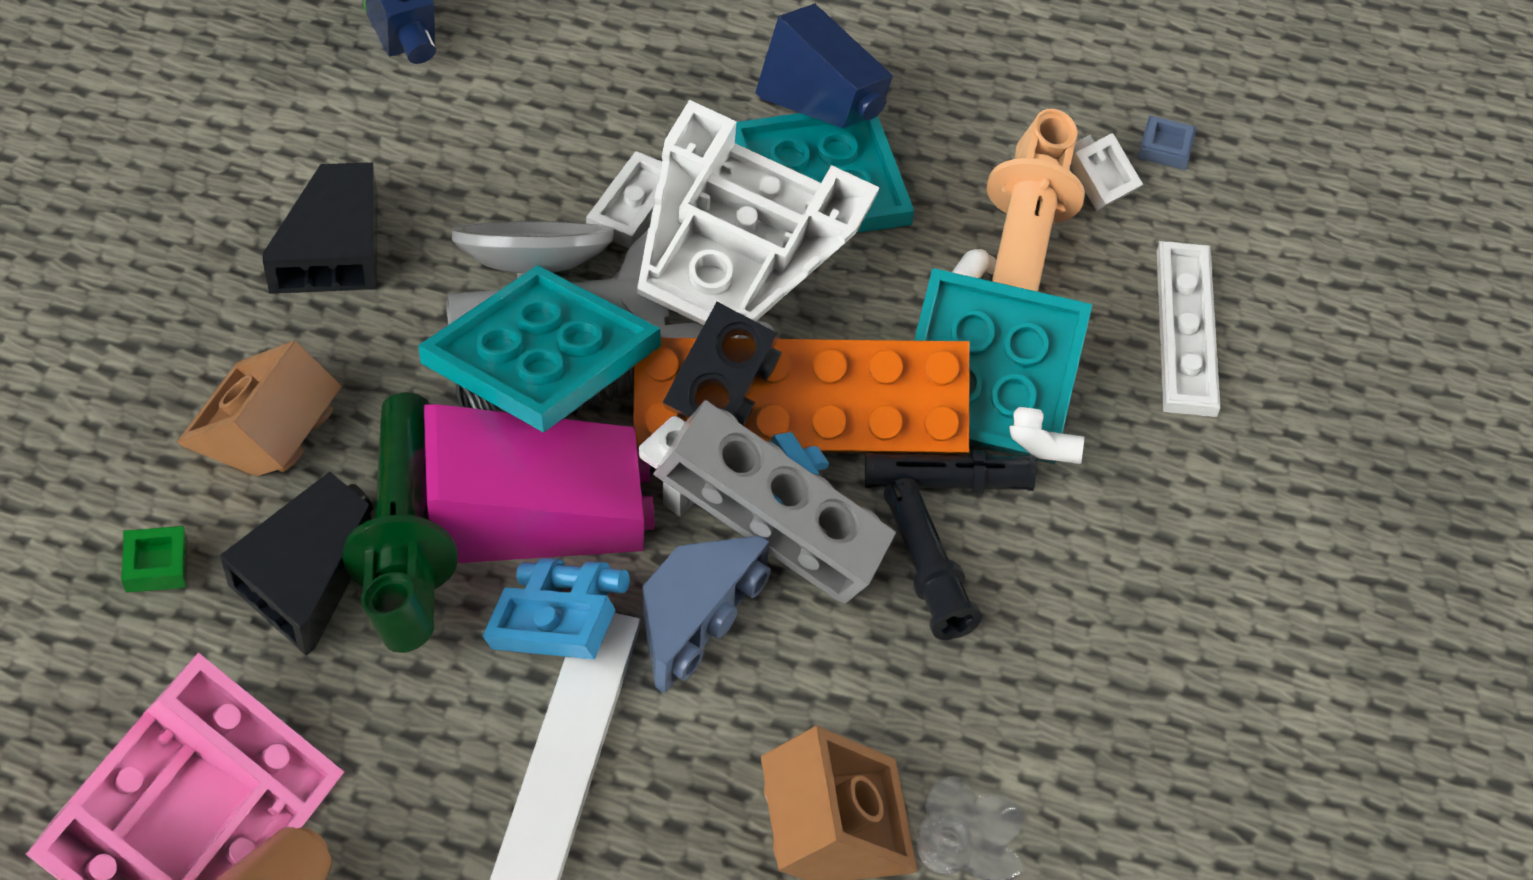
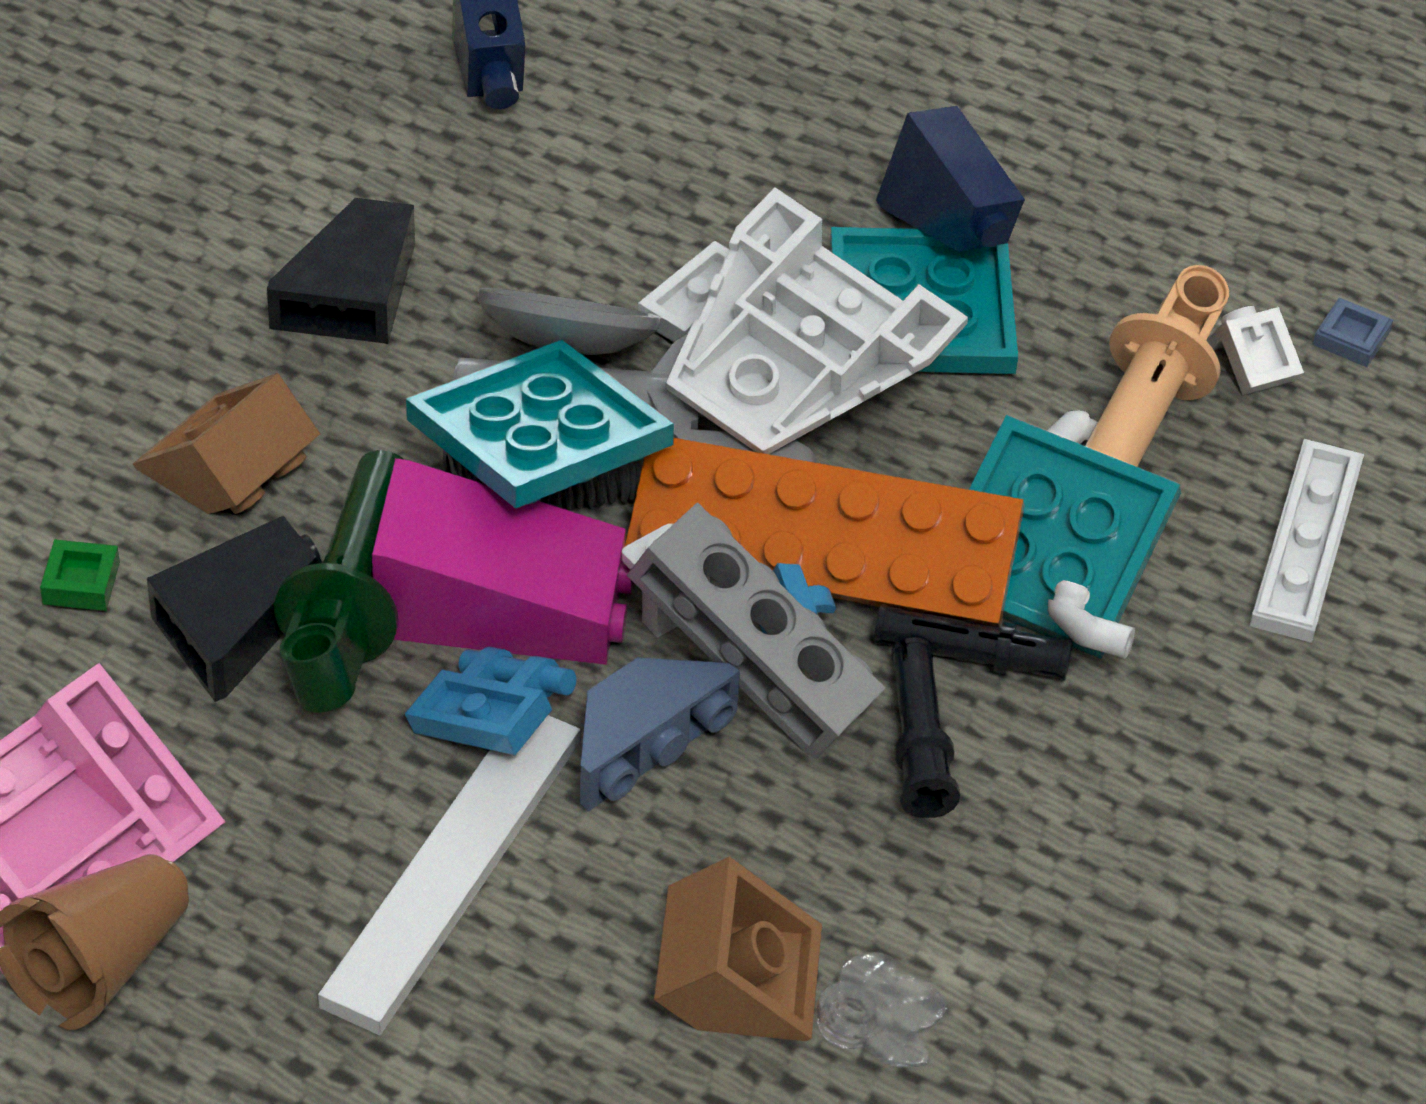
camera: 15 degrees right, 5 degrees down
(709, 366) = (718, 474): black brick -> none

